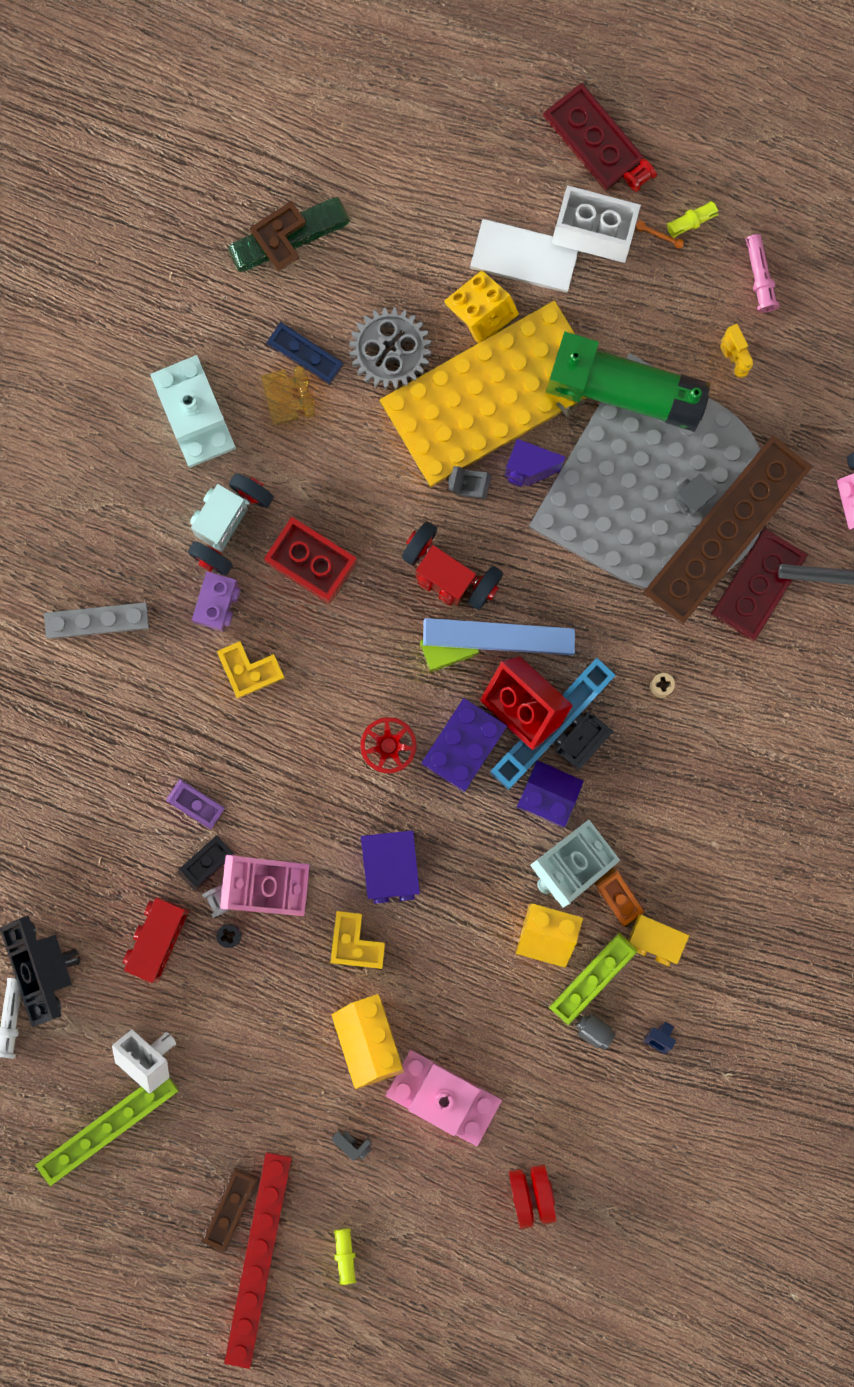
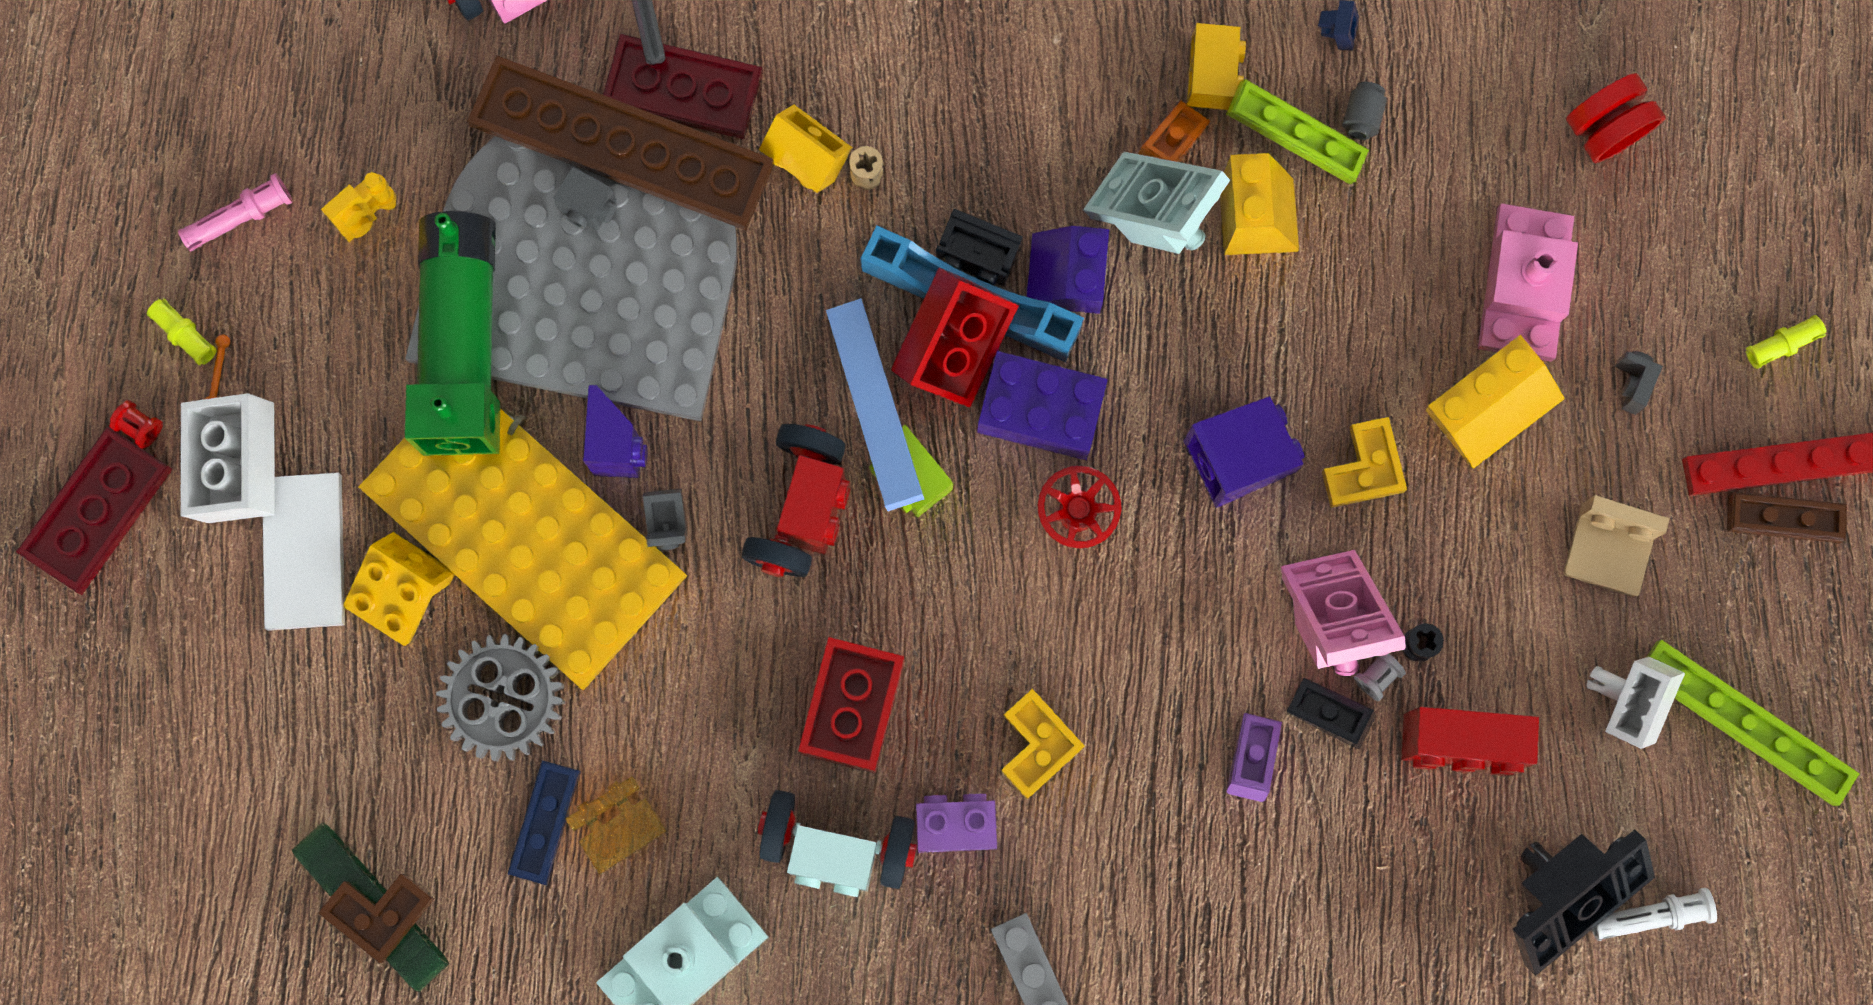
camera: 110 degrees left, 5 degrees down
(247, 1083) = (1613, 545): none -> tan bracket
(686, 649) = (805, 148): none -> yellow brick

